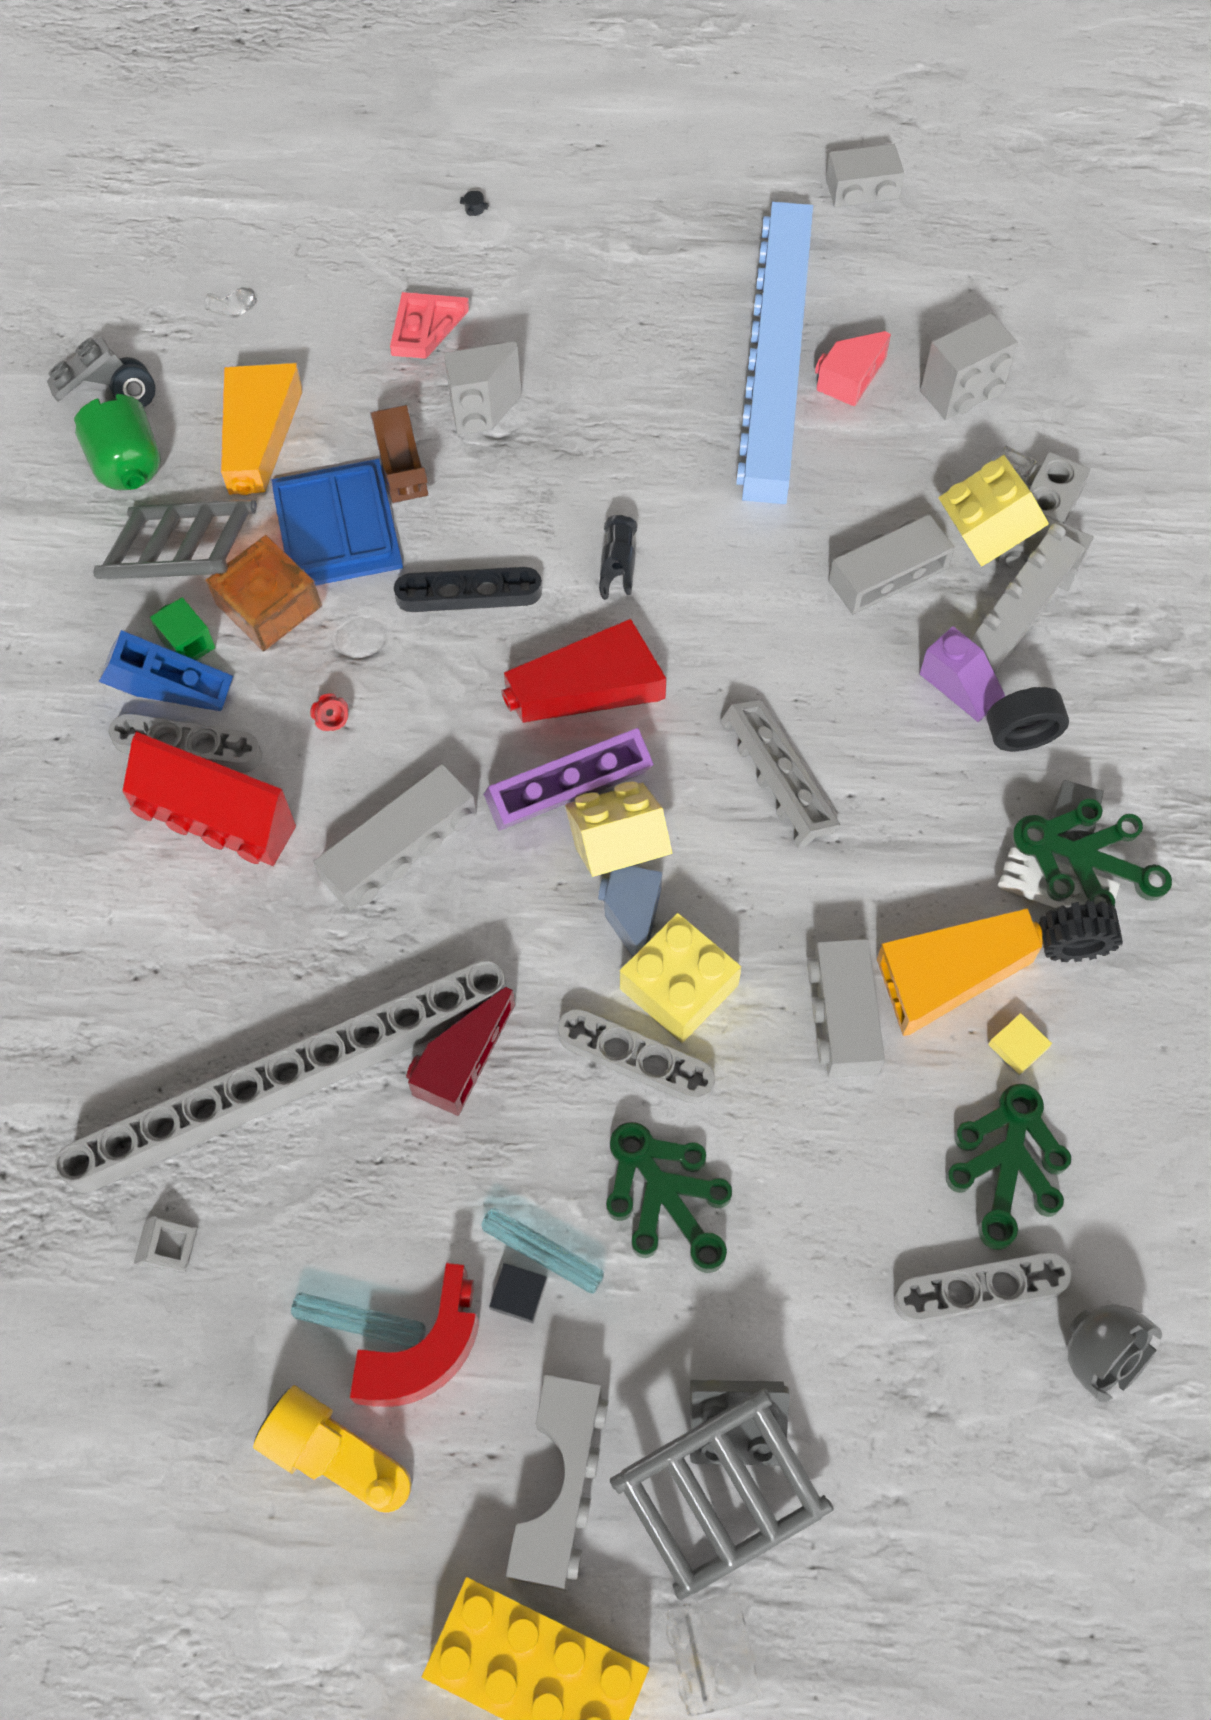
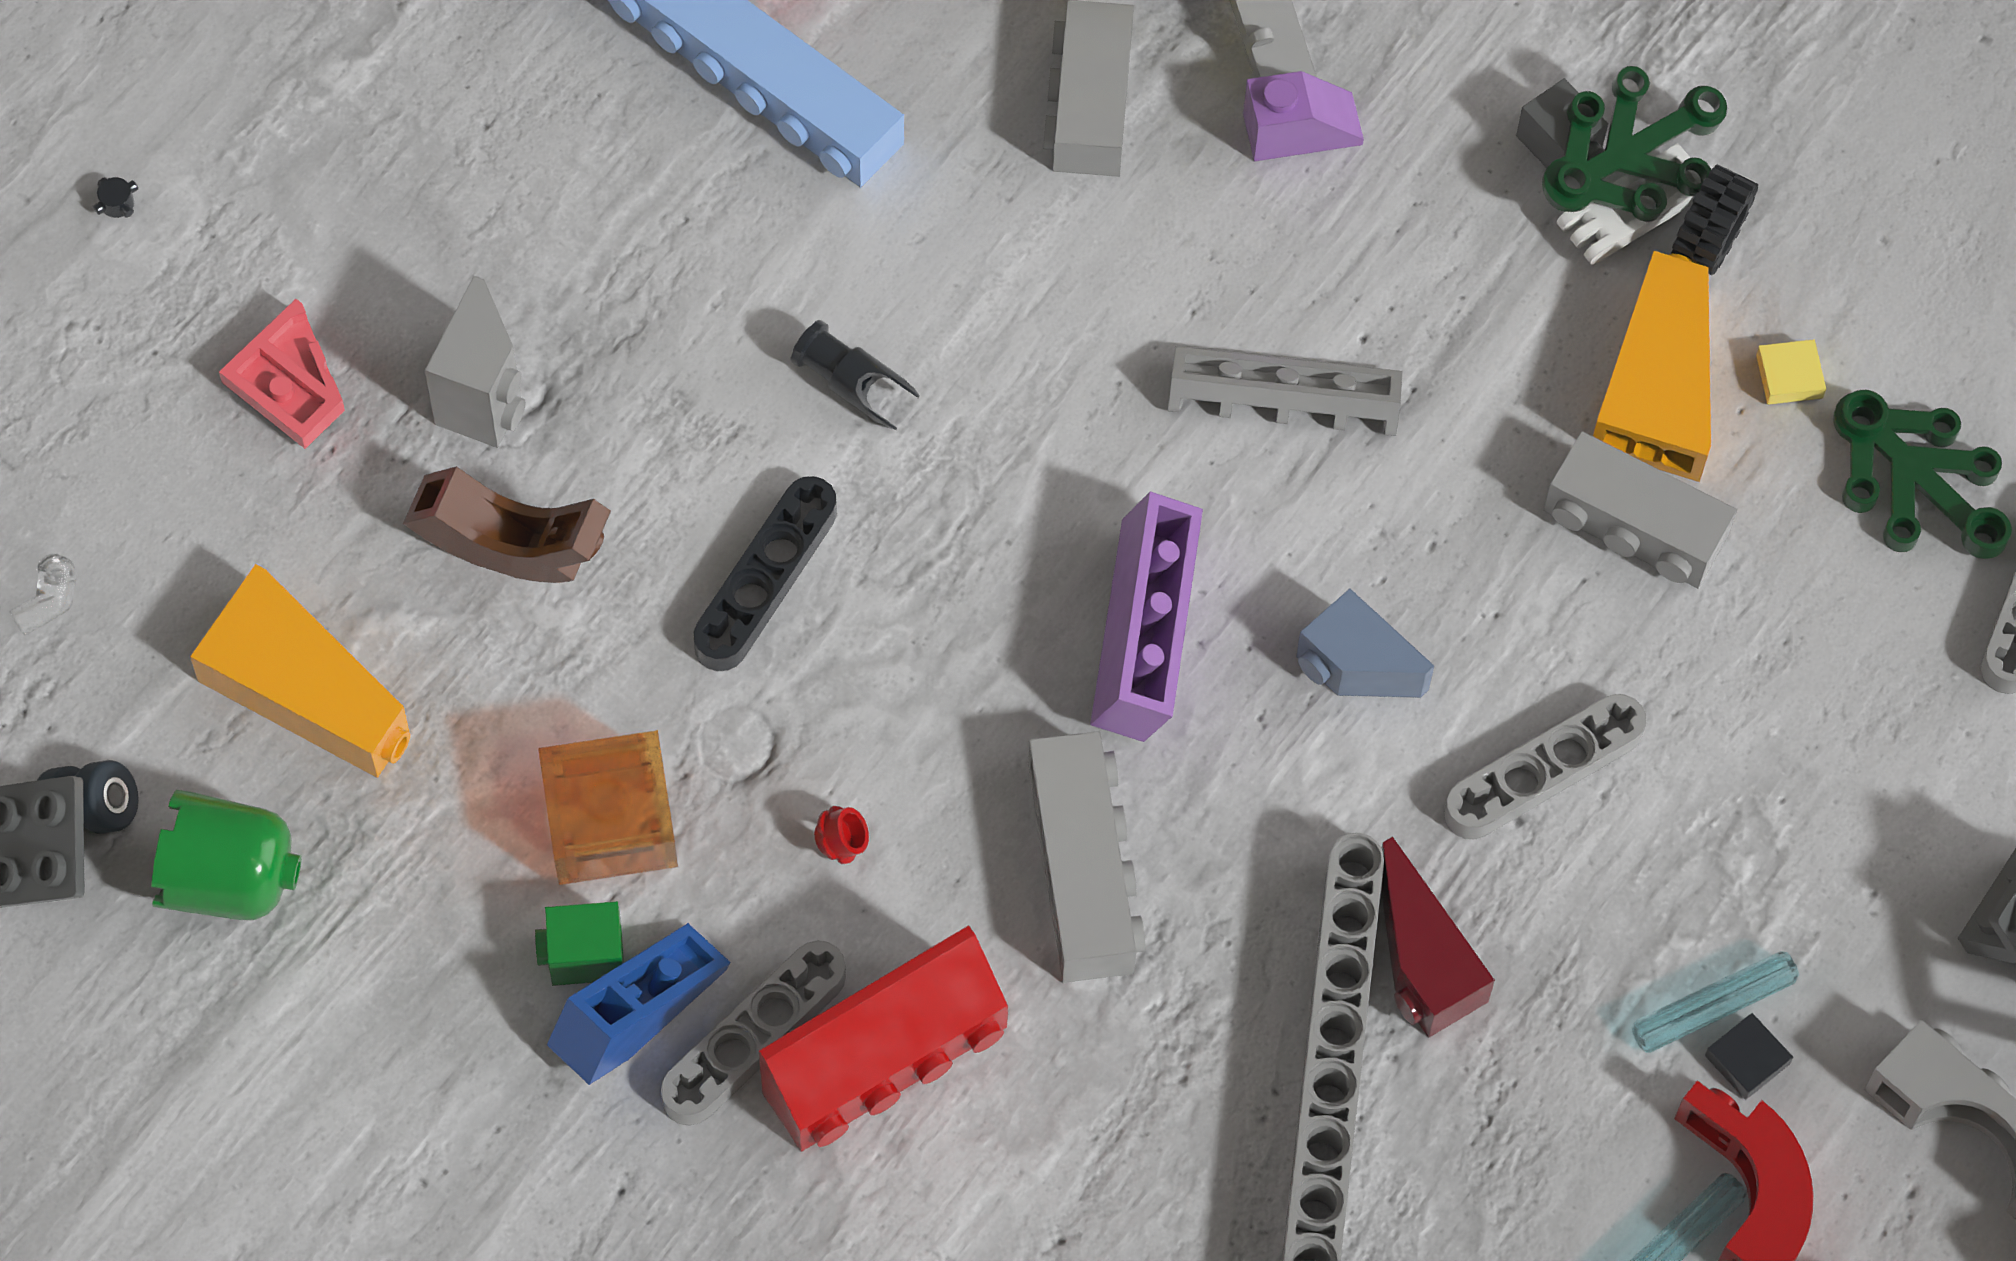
camera: 60 degrees left, 0 degrees up
(182, 564) = (467, 927): dark grey bar -> none
(337, 522) = (530, 665): blue piece -> none
(586, 677) = (1009, 503): red slope -> none
(618, 828) = (1262, 599): light yellow brick -> none
(664, 1190) = (1728, 836): dark green plant -> none
(679, 977) = (1488, 656): light yellow brick -> none
(1027, 719) = (1417, 89): black tyre -> none

